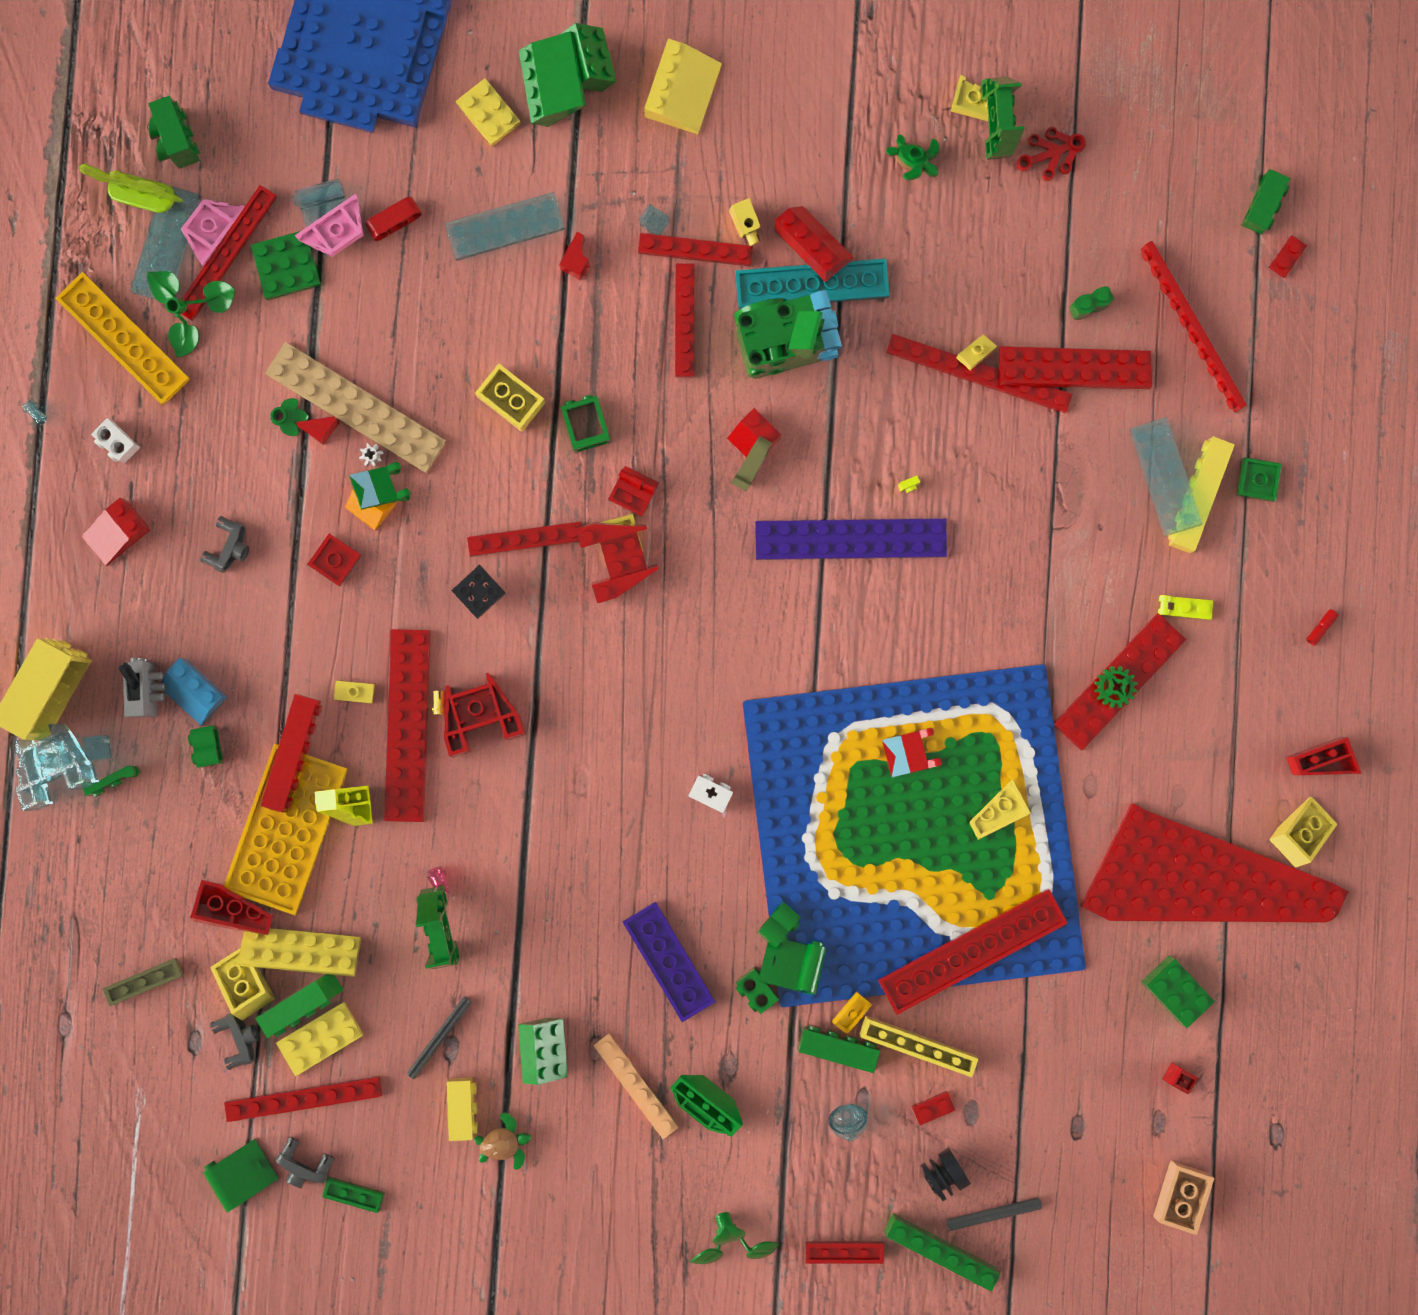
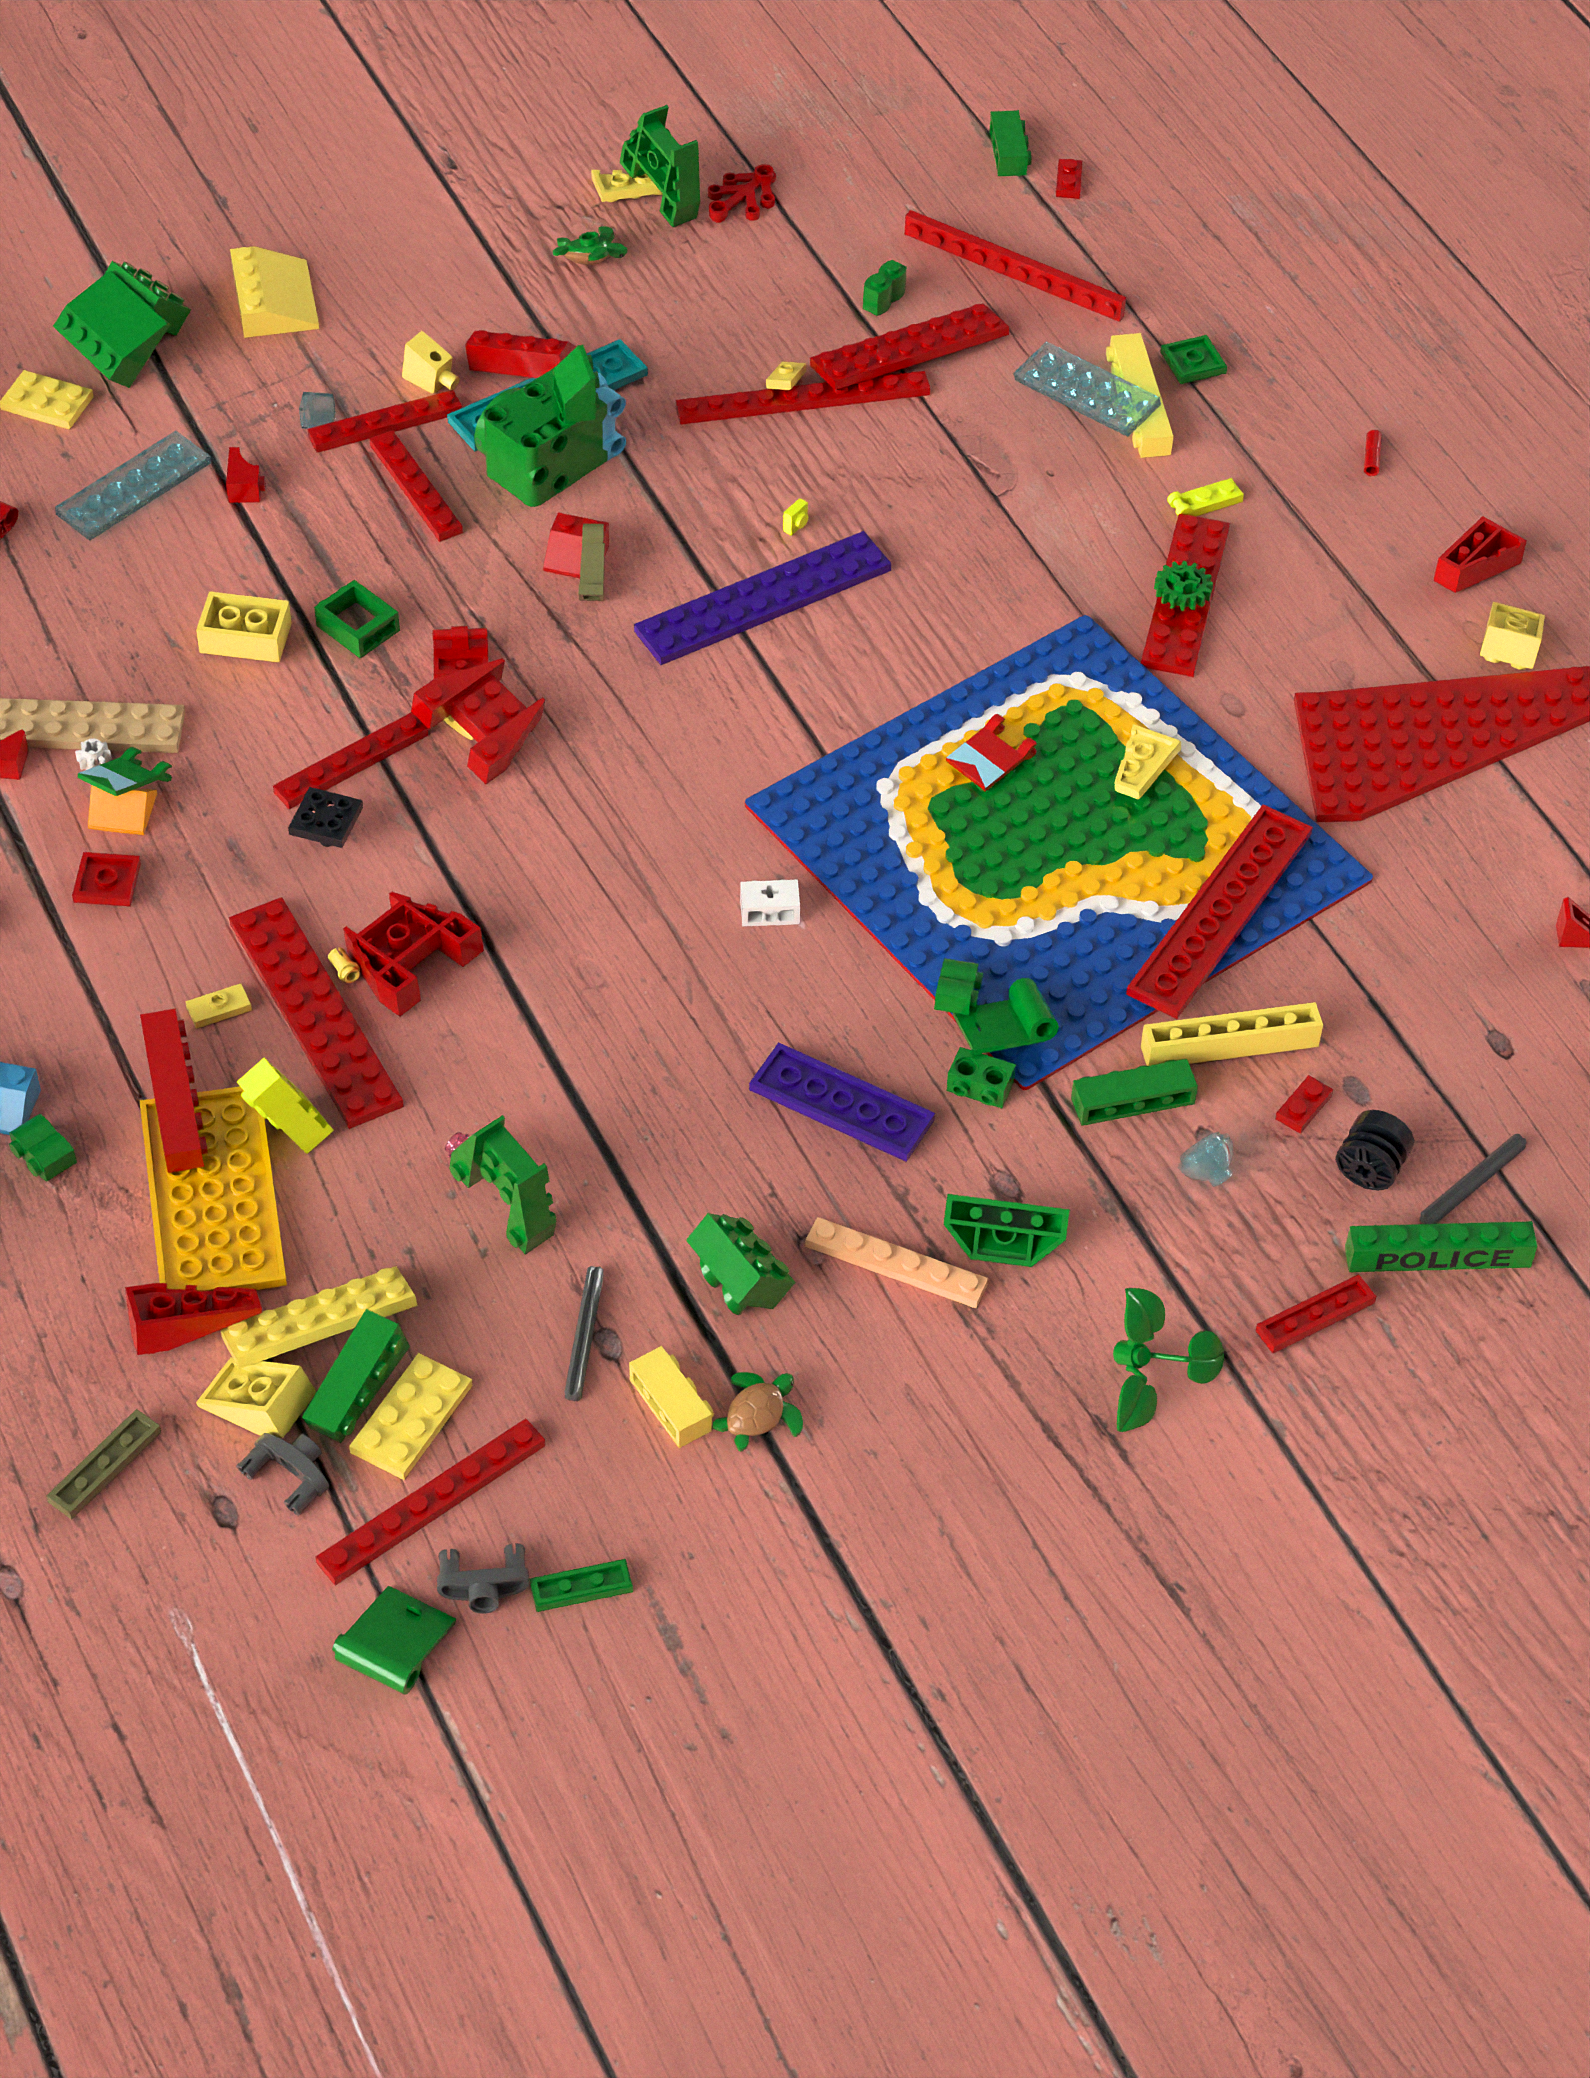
camera: 30 degrees left, 35 degrees down
(852, 1013) = (1120, 1044): yellow plate -> none
(1177, 991) = (1500, 842): green brick -> none

